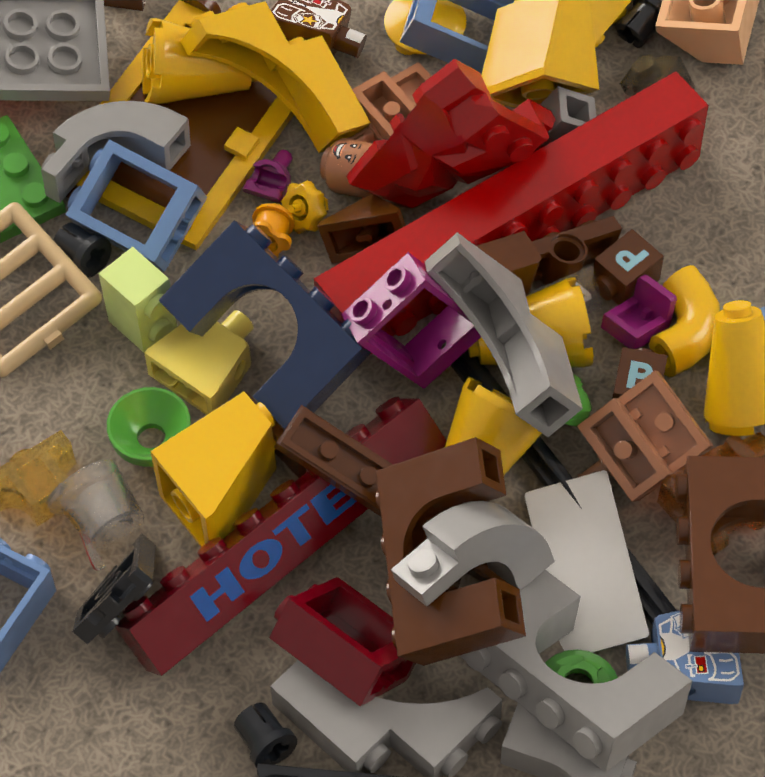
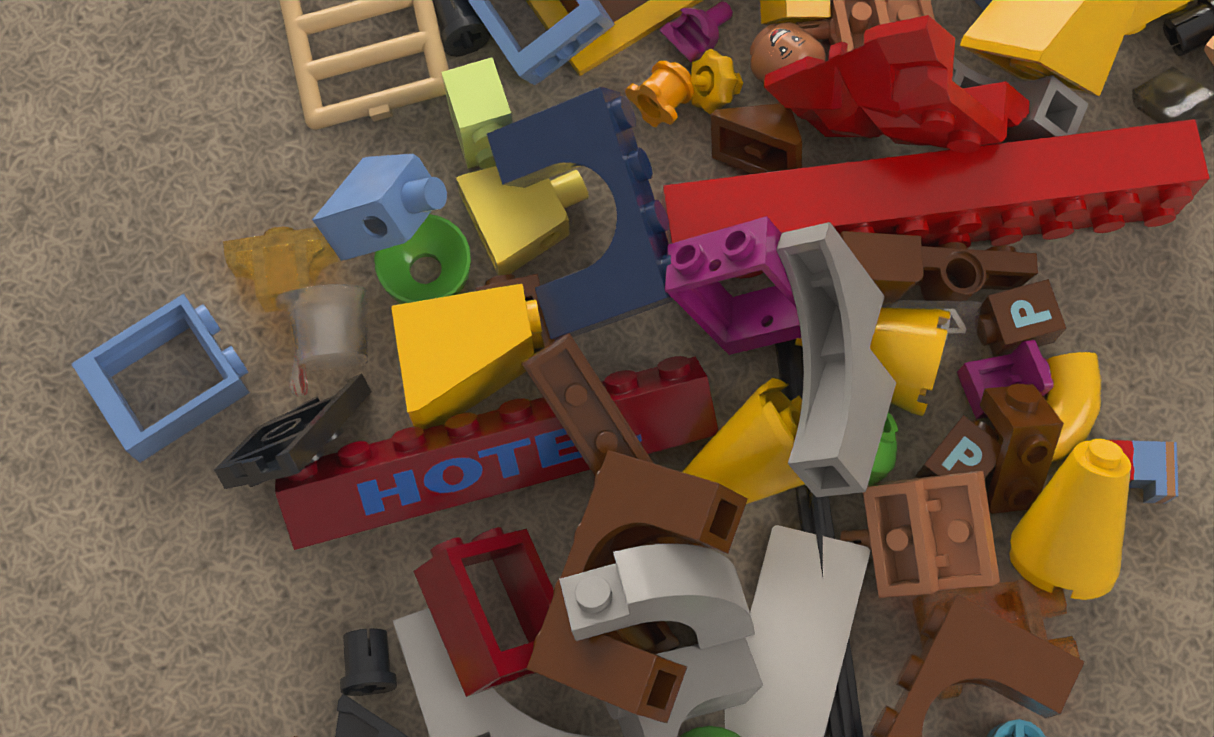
camera: 25 degrees right, 15 degrees up
(97, 393) = (379, 205): none -> medium blue torso
(681, 348) = (1028, 445): none -> reddish brown bracket

